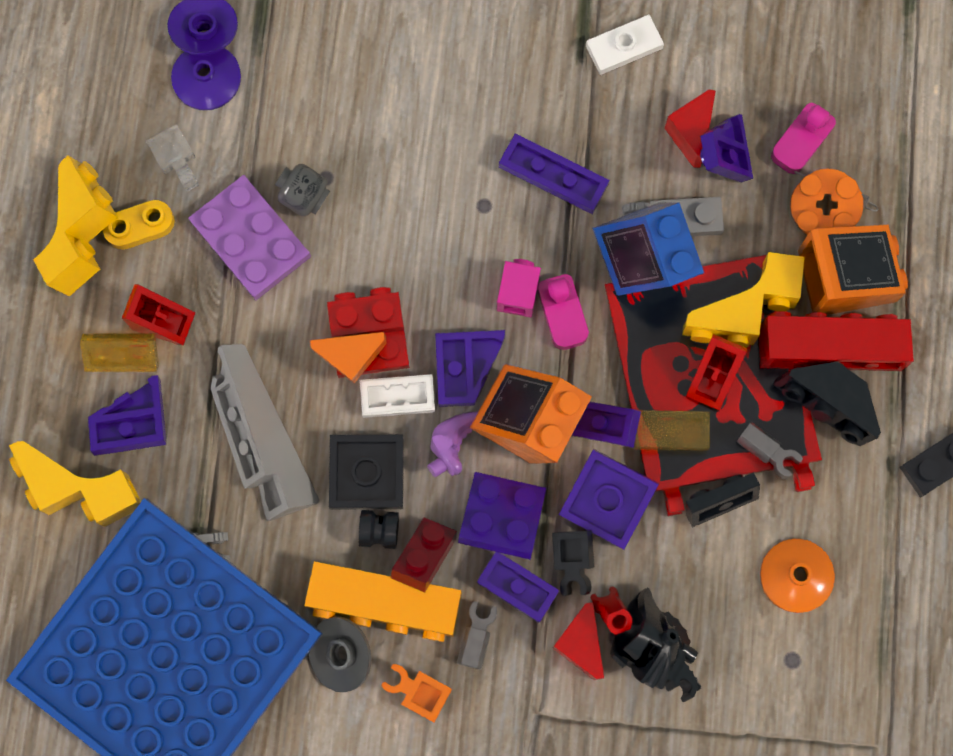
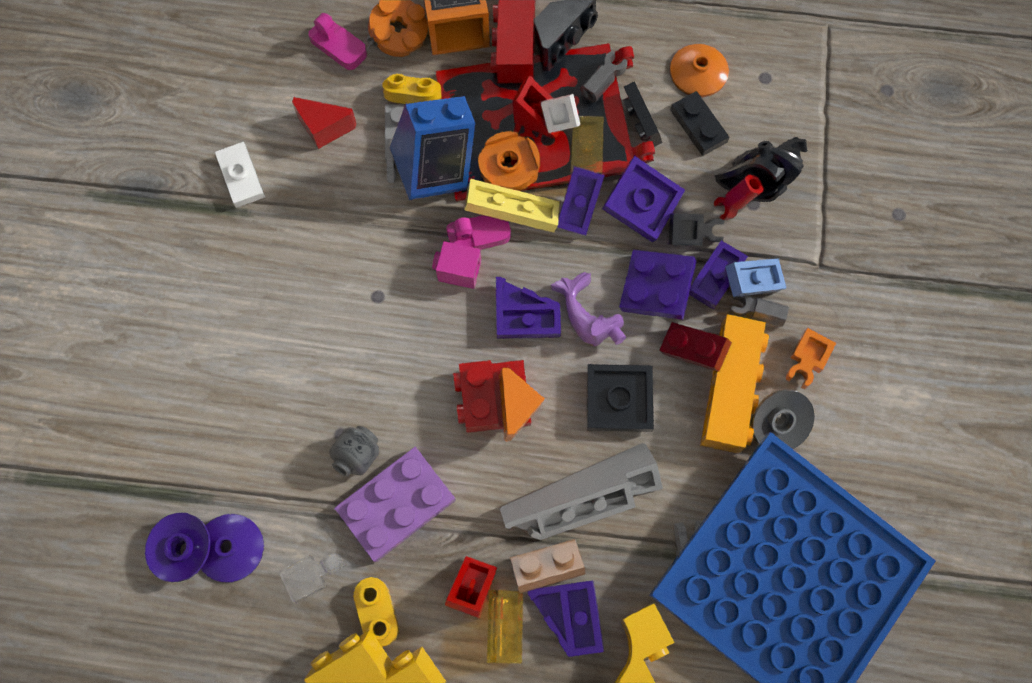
camera: 90 degrees left, 5 degrees down
(182, 395) = (547, 566): none -> medium nougat plate
(378, 529) = (671, 387): black wheel -> none
(397, 396) = (551, 369): white plate -> none
(511, 629) = (755, 277): none -> medium blue plate
(531, 414) = (576, 248): orange slope -> none
(553, 173) = (354, 234): dark purple plate -> none
(581, 643) = (760, 225): red slope -> none
(593, 342) = (512, 205): none -> light yellow plate
(657, 322) = (518, 148): none -> orange plate
(706, 394) = (560, 113): none -> white plate
(720, 572) = (699, 123): none -> black plate
(726, 150) = (351, 93): dark purple wing -> none
(739, 223) = (408, 90): none -> yellow plate
(740, 315) = (494, 89): yellow arch -> none

